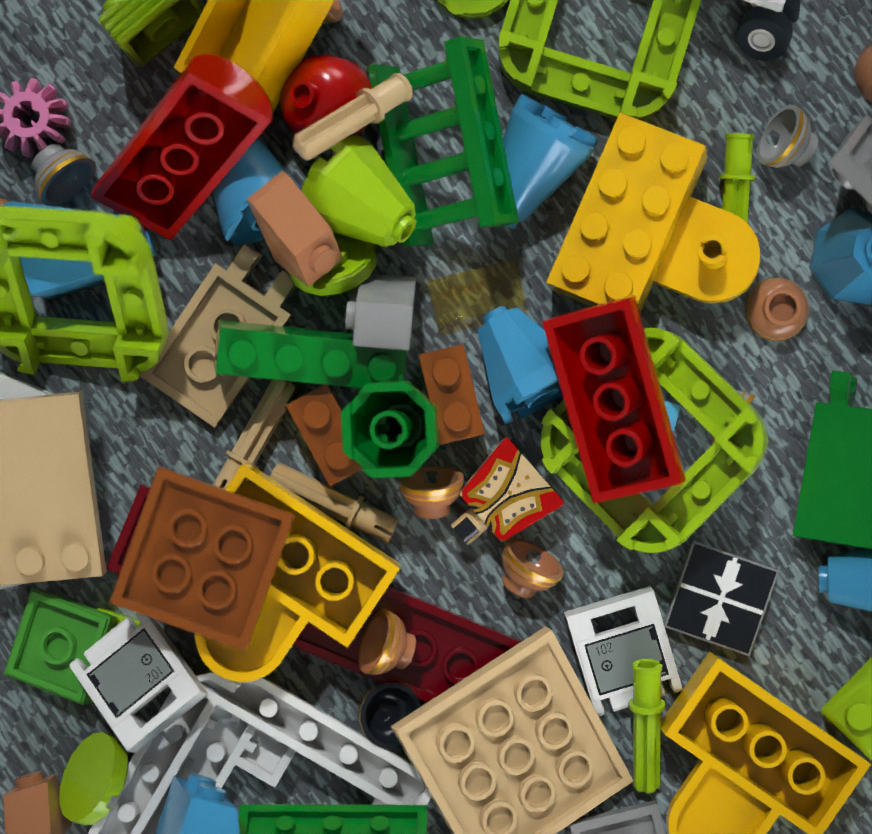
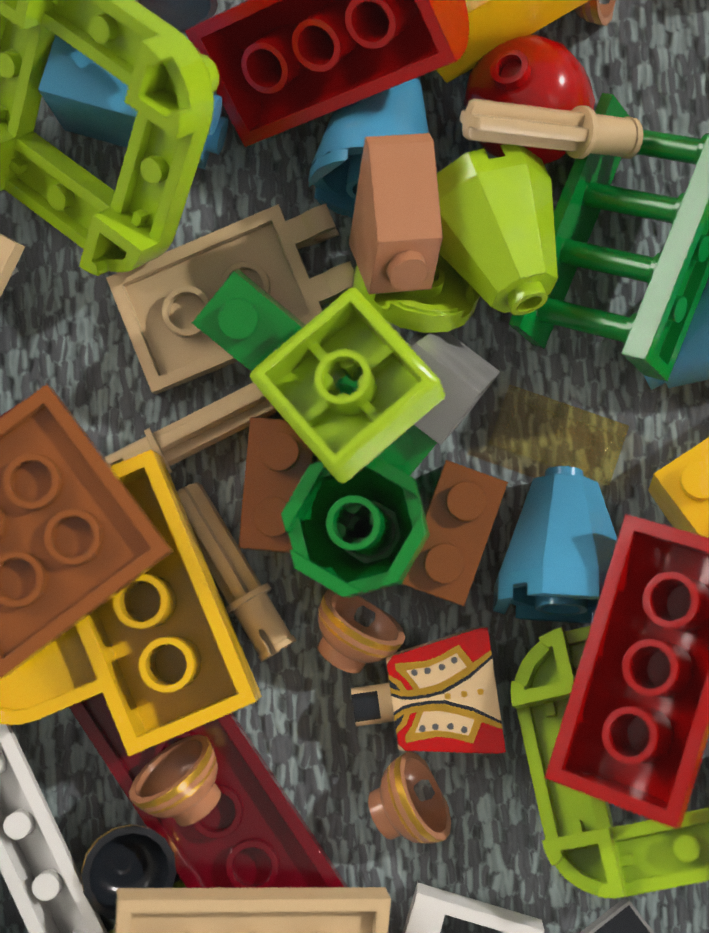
camera: 40 degrees right, 5 degrees down
(309, 372) = (357, 343): none -> lime brick

